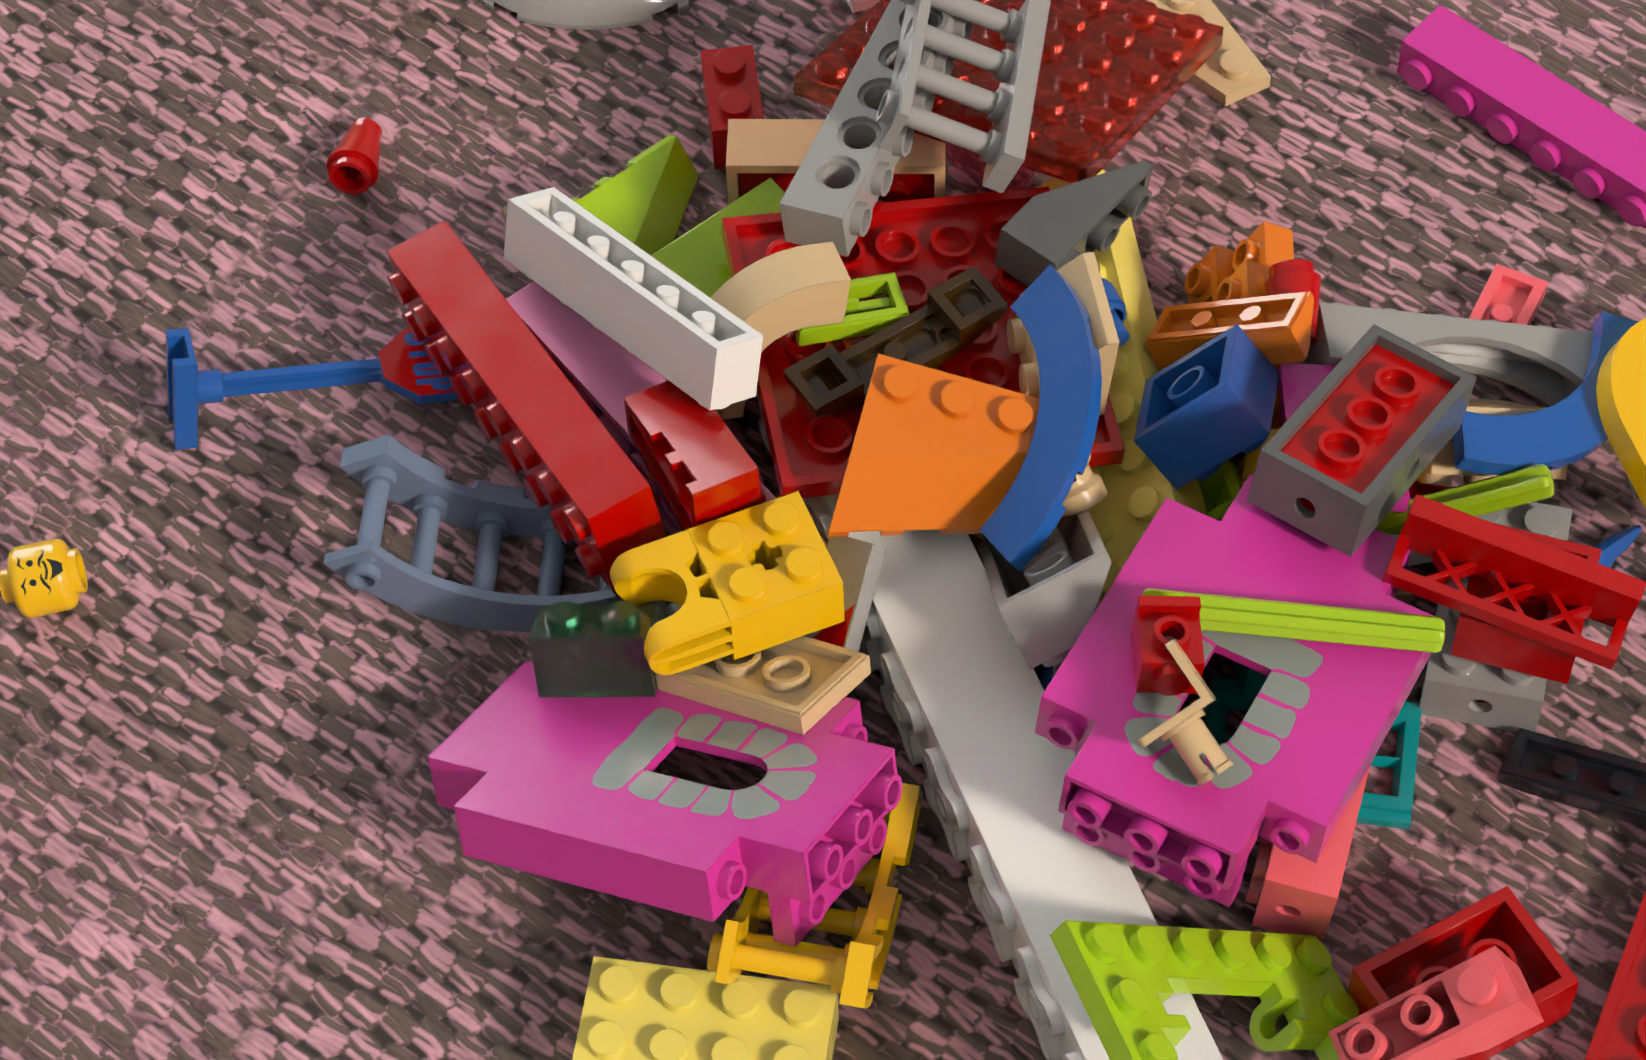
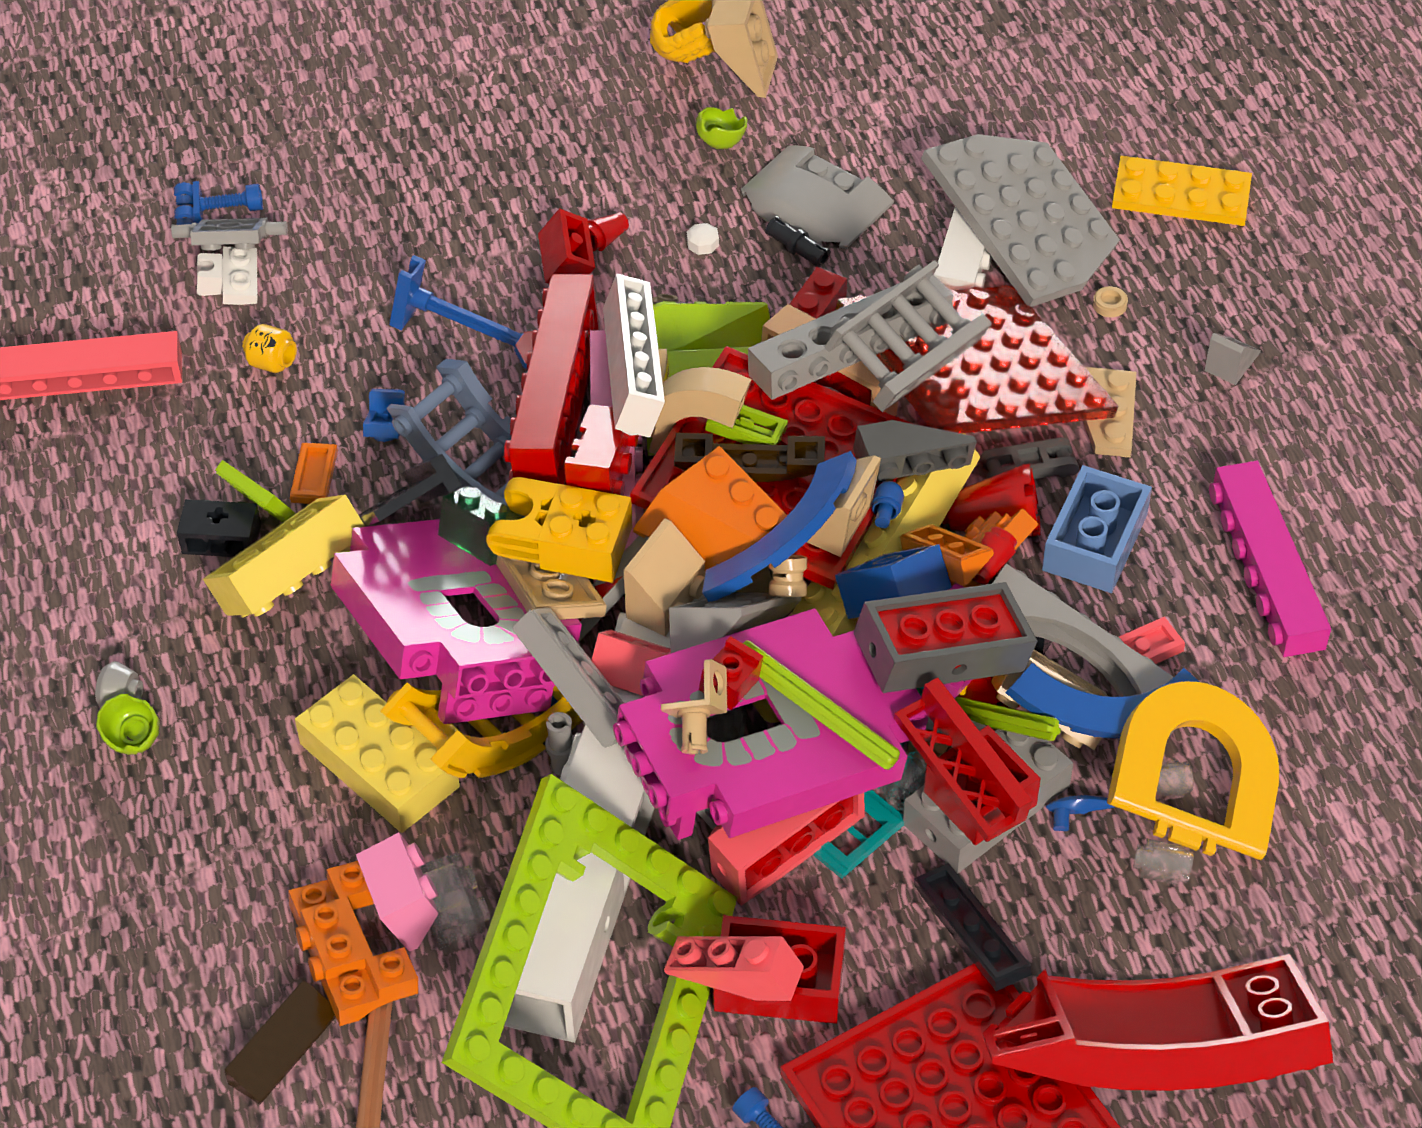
camera: 35 degrees right, 5 degrees down
(229, 791) = (254, 492): none -> lime tile
(233, 871) = (217, 527): none -> black brick
(257, 716) = (313, 472): none -> orange tile
(291, 577) = (378, 420): none -> blue bracket
(340, 210) = (566, 245): none -> red brick
(348, 854) = (284, 557): none -> light yellow brick
(457, 667) = (424, 481): none -> black fence
(495, 95) = (702, 238): none -> white tile
(625, 32) = (797, 241): none -> black pin
(934, 579) = (662, 576): none -> tan slope
(937, 774) = (571, 671): none -> light grey slope
(943, 876) = (559, 740): none -> light grey pin
(977, 711) = (623, 658): none -> coral panel
(1175, 156) = (1033, 453): none -> dark grey plate
(1189, 224) = (1000, 493): none -> red cone
(1334, 194) = (1096, 529): none -> medium blue brick

